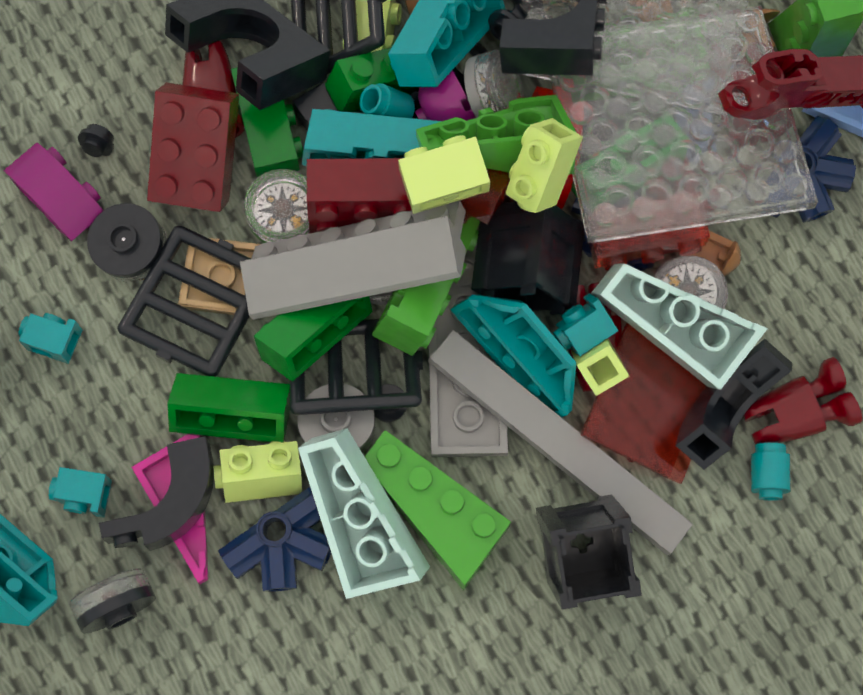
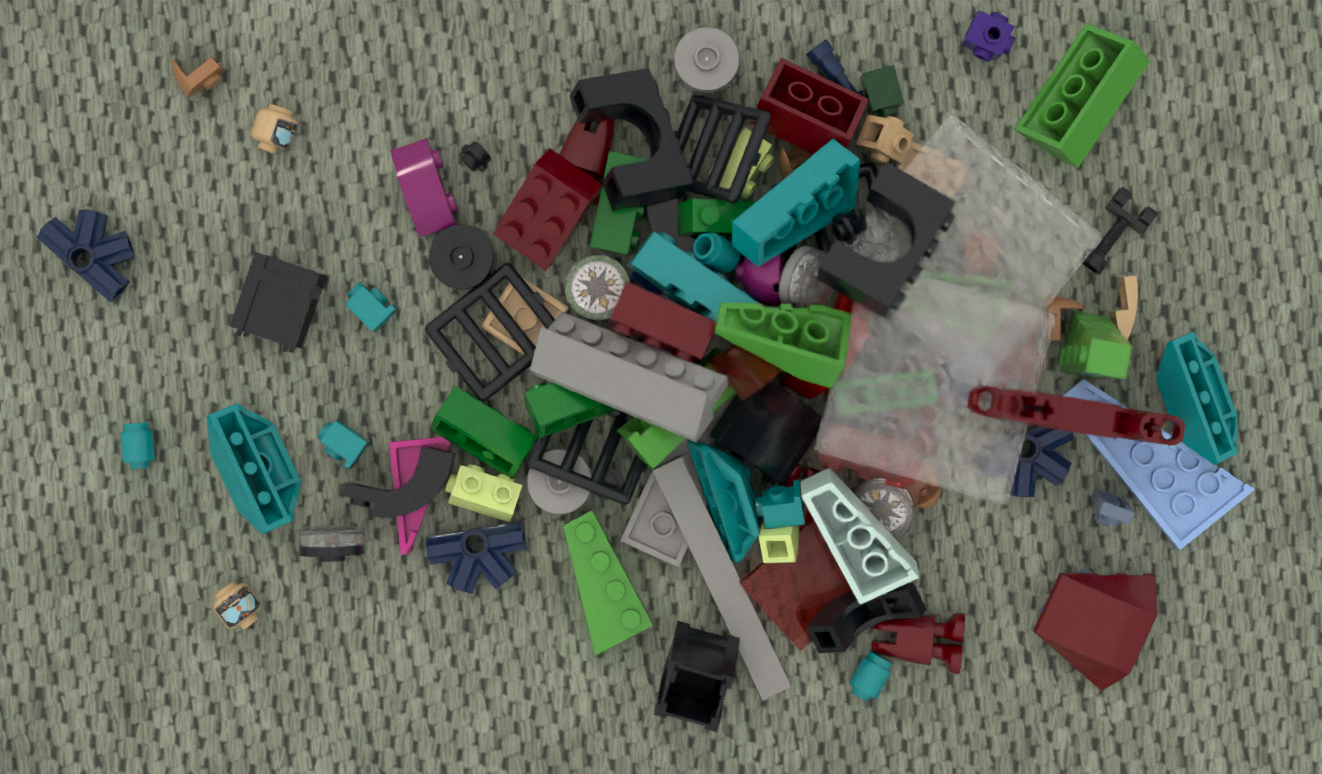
camera: 30 degrees right, 15 degrees up
(358, 518) = (540, 570): light aqua wedge -> none
(443, 173) = (720, 358): yellowish green brick -> none
(542, 165) = (803, 382): yellowish green brick -> none

